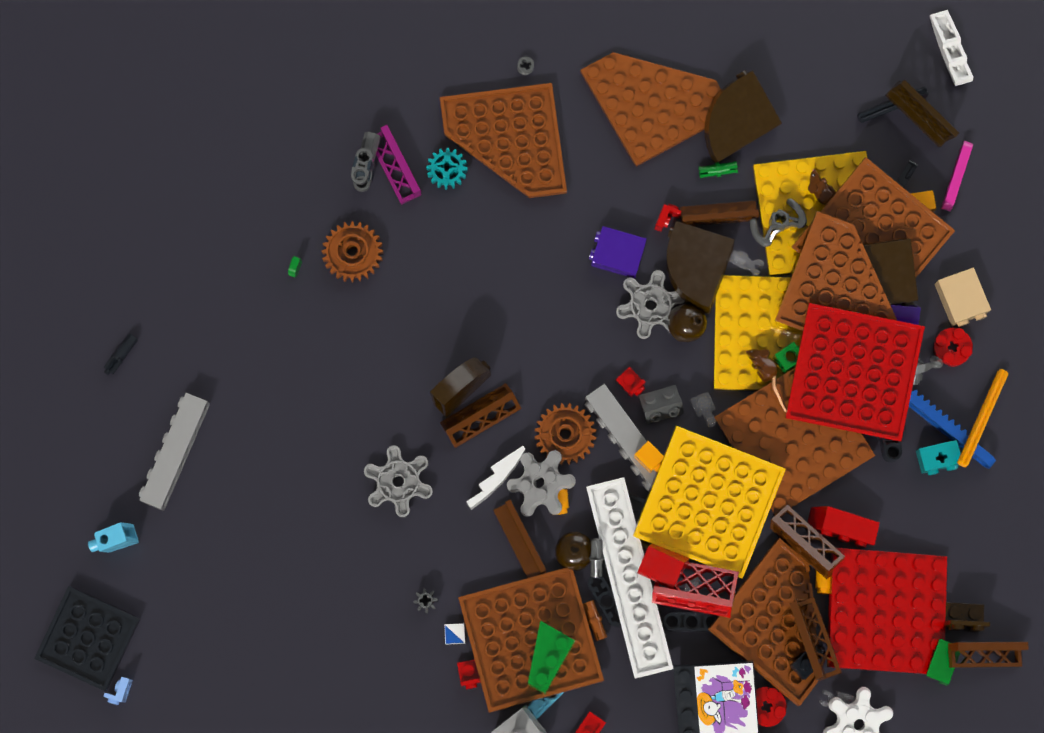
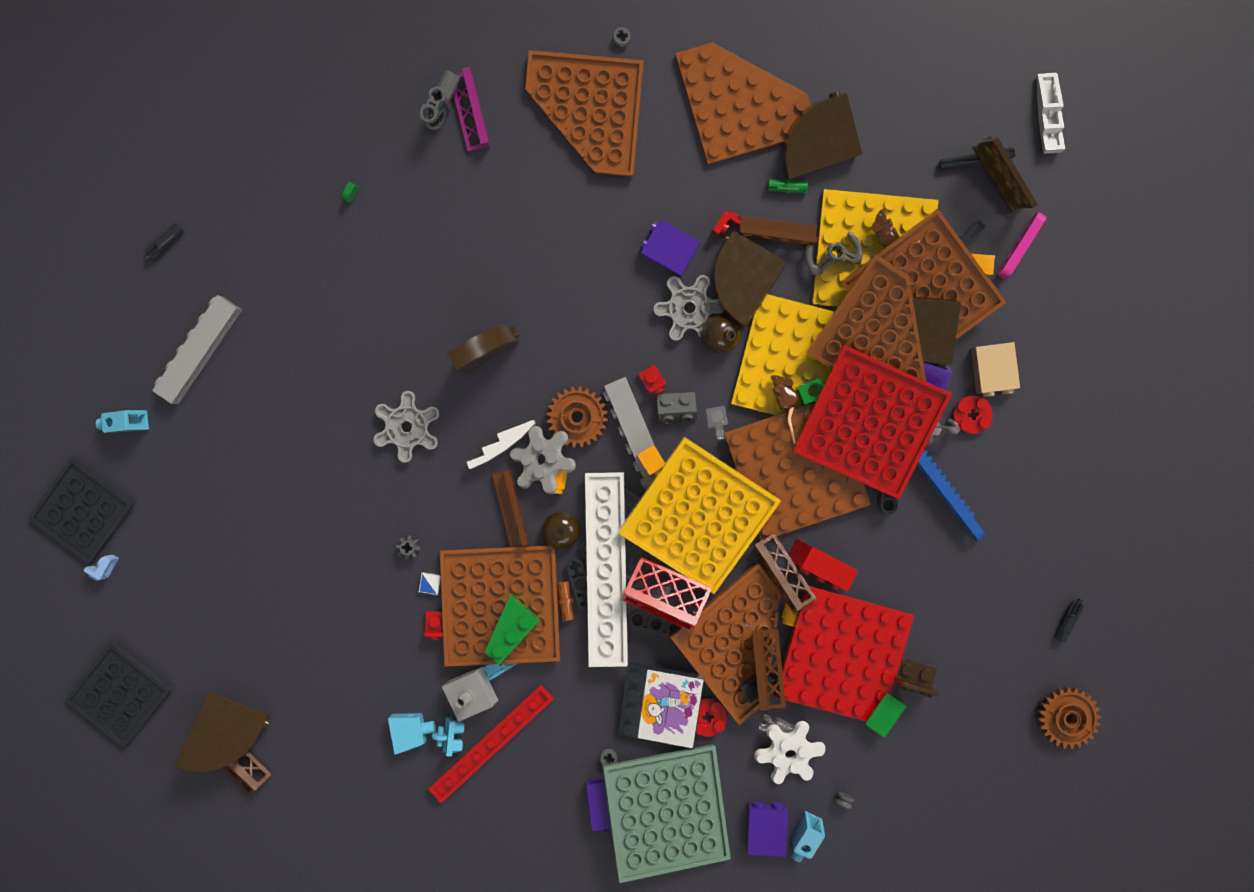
camera: 15 degrees right, 10 degrees up
(342, 242) = (399, 179): dark orange gear -> none
(454, 168) = (521, 118): teal gear -> none
(464, 418) = (498, 376): reddish brown fence -> none
(596, 557) = (579, 543): dark grey axle -> none
(662, 566) = (640, 568): red slope -> none
(741, 259) = (789, 284): clear plate -> none
(927, 457) = (920, 515): teal brick -> none
(982, 418) = (983, 493): light orange axle -> none
(989, 647) = (927, 712): reddish brown fence -> none

